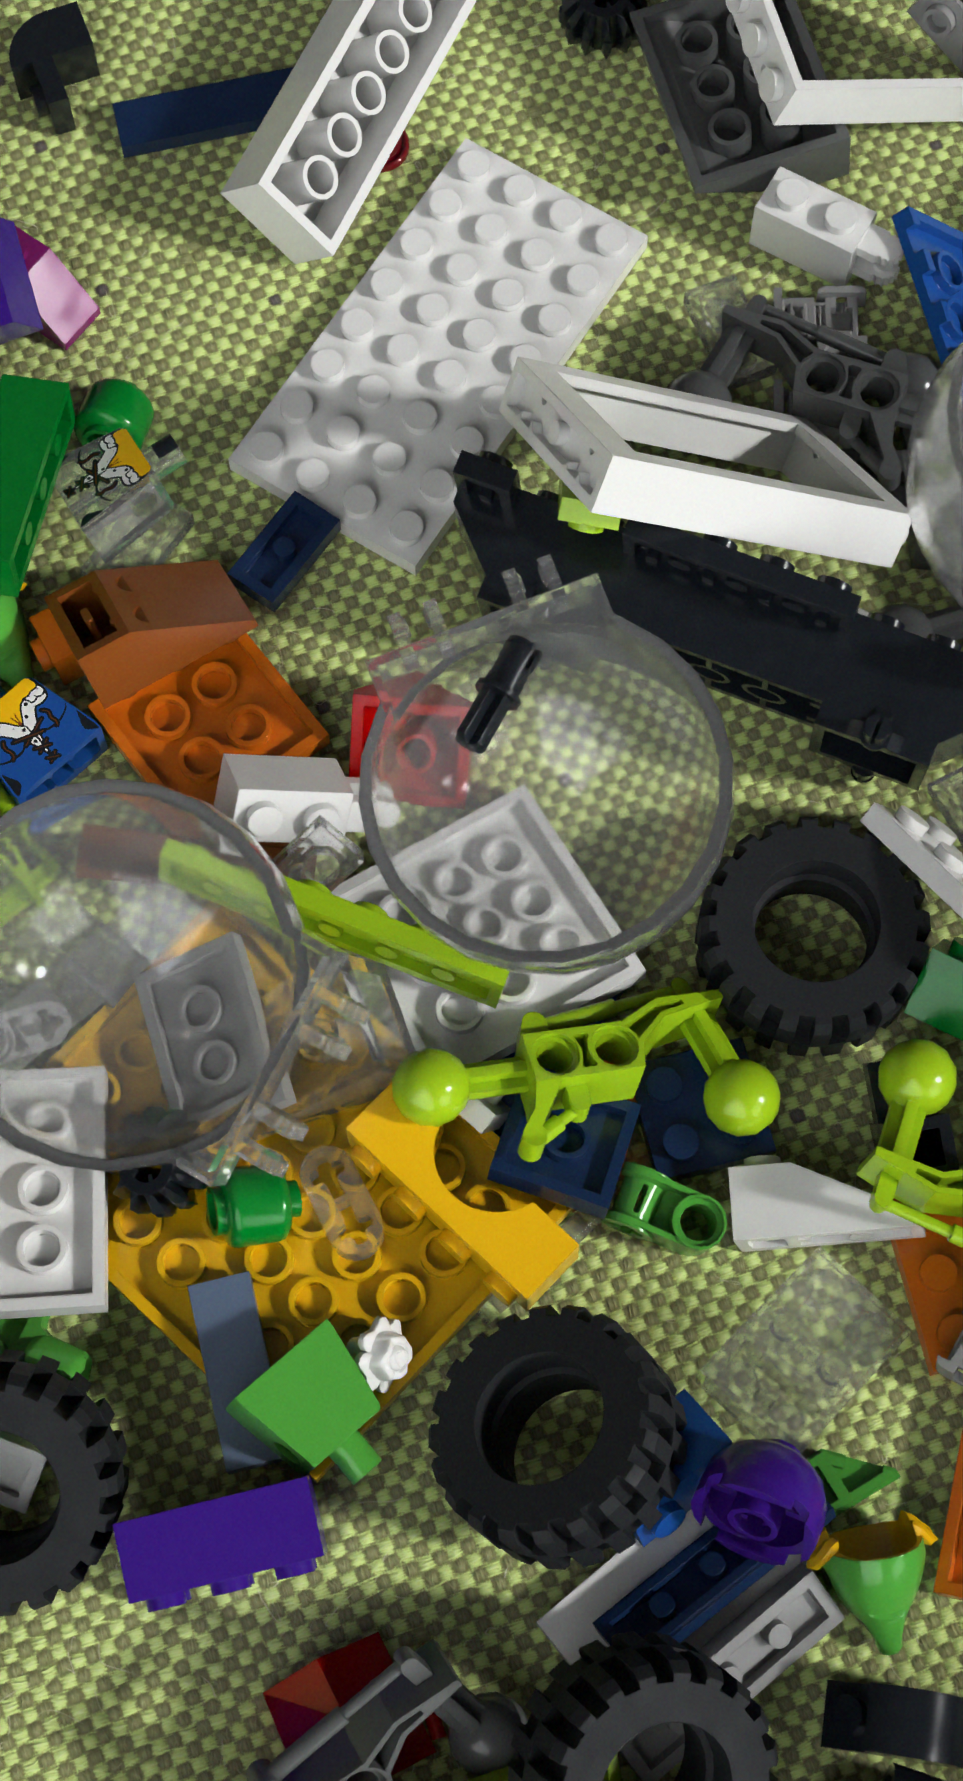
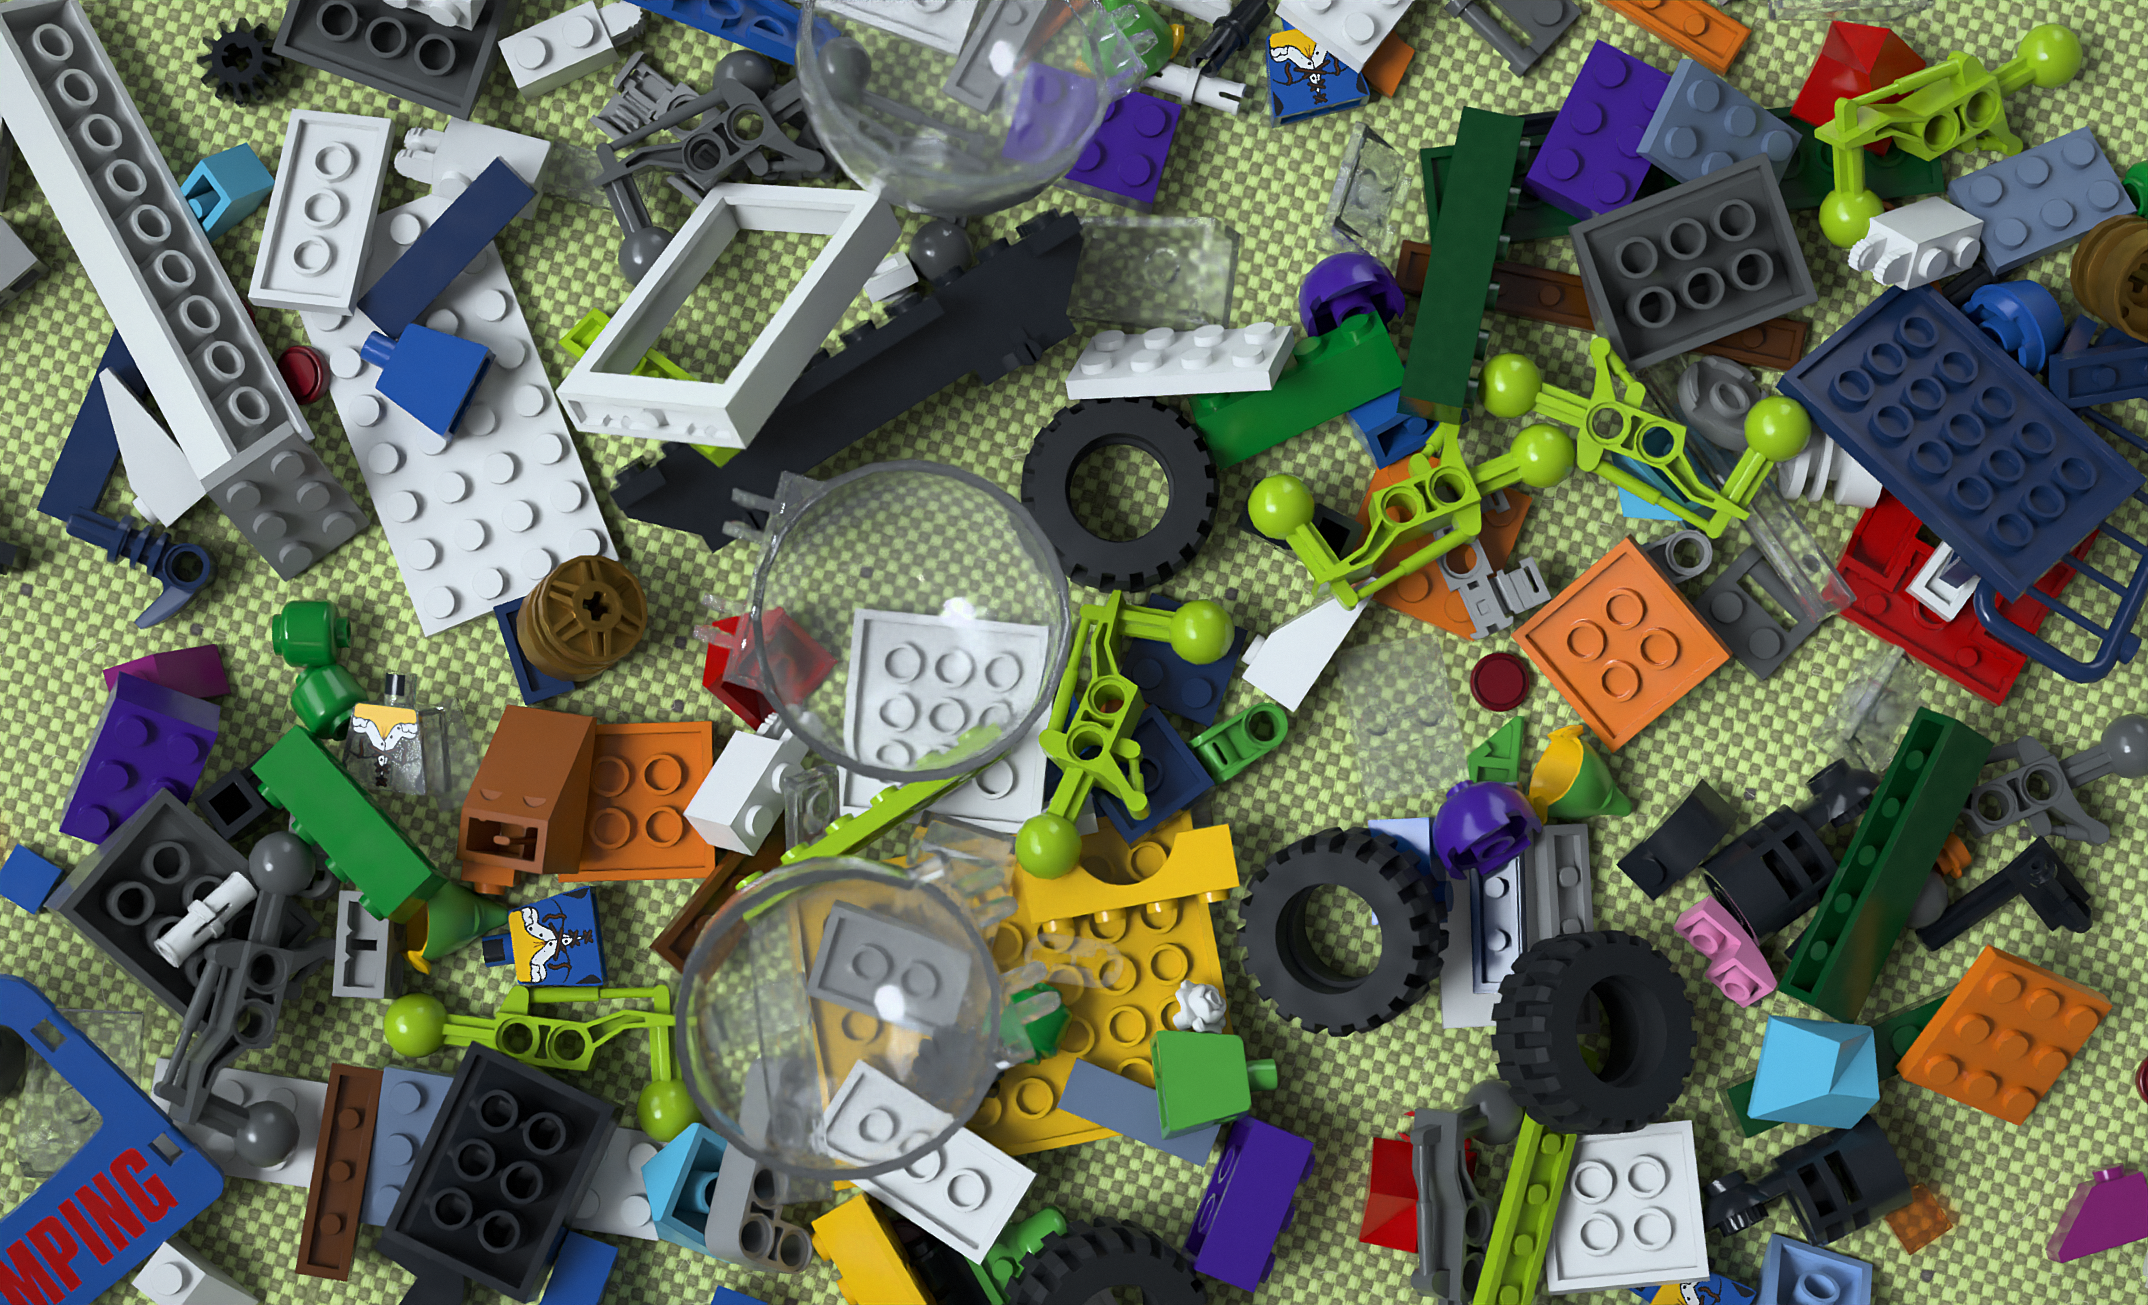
camera: 55 degrees left, 15 degrees up
(141, 211) = (143, 548): none -> dark blue piece
(162, 364) = (310, 633): none -> green head
(217, 144) = (150, 454): none -> white slope
(259, 259) = (285, 501): none -> light grey plate
(314, 574) = (560, 633): none -> pearl gold wheel
(380, 222) = (304, 373): none -> dark red piece
(457, 303) = (429, 374): none -> blue torso
(487, 63) = (226, 189): none -> medium azure slope
(498, 693) = (811, 601): black axle -> none
(527, 139) = (322, 212): none -> white plate
(575, 239) = (446, 248): none -> dark blue tile
(664, 229) = (464, 151): none -> white hinge
(913, 1430) = (1499, 682): none -> dark red piece

